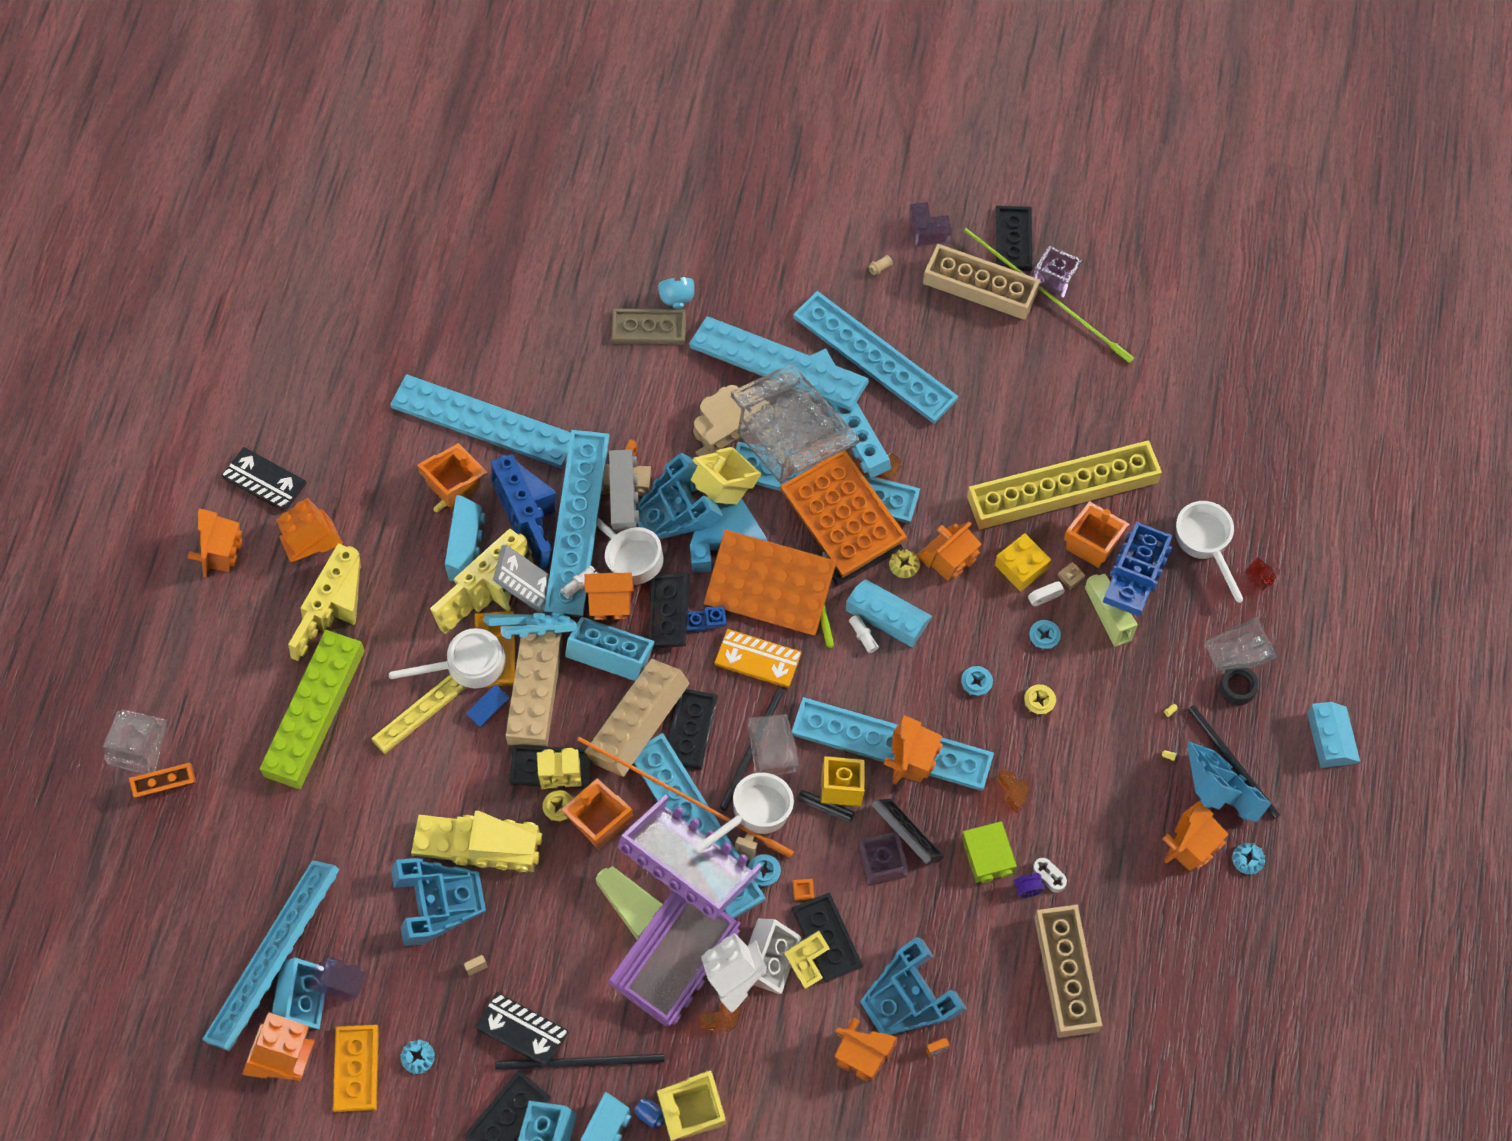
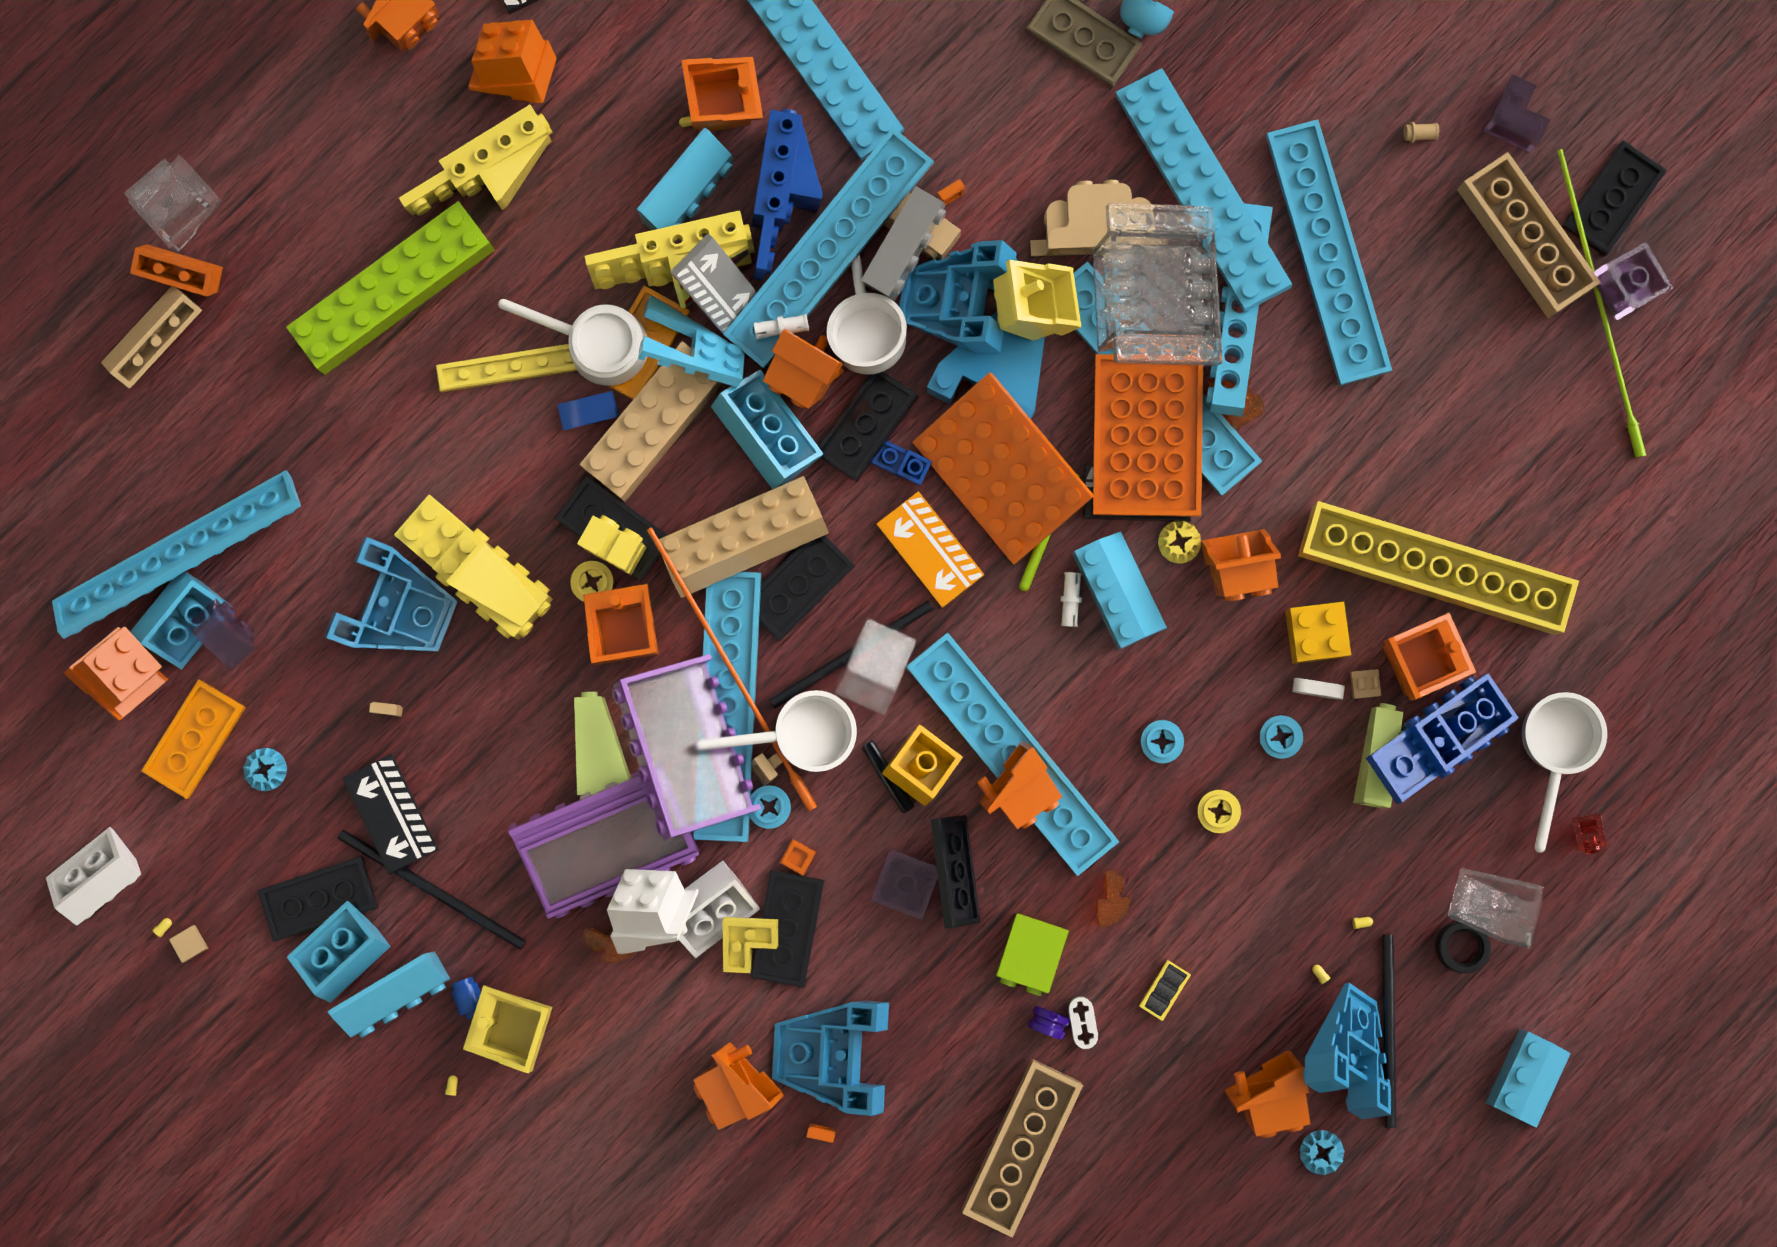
camera: 40 degrees right, 20 degrees up
(170, 830) = (151, 336): none -> tan brick
(1084, 824) = (1164, 990): none -> tile

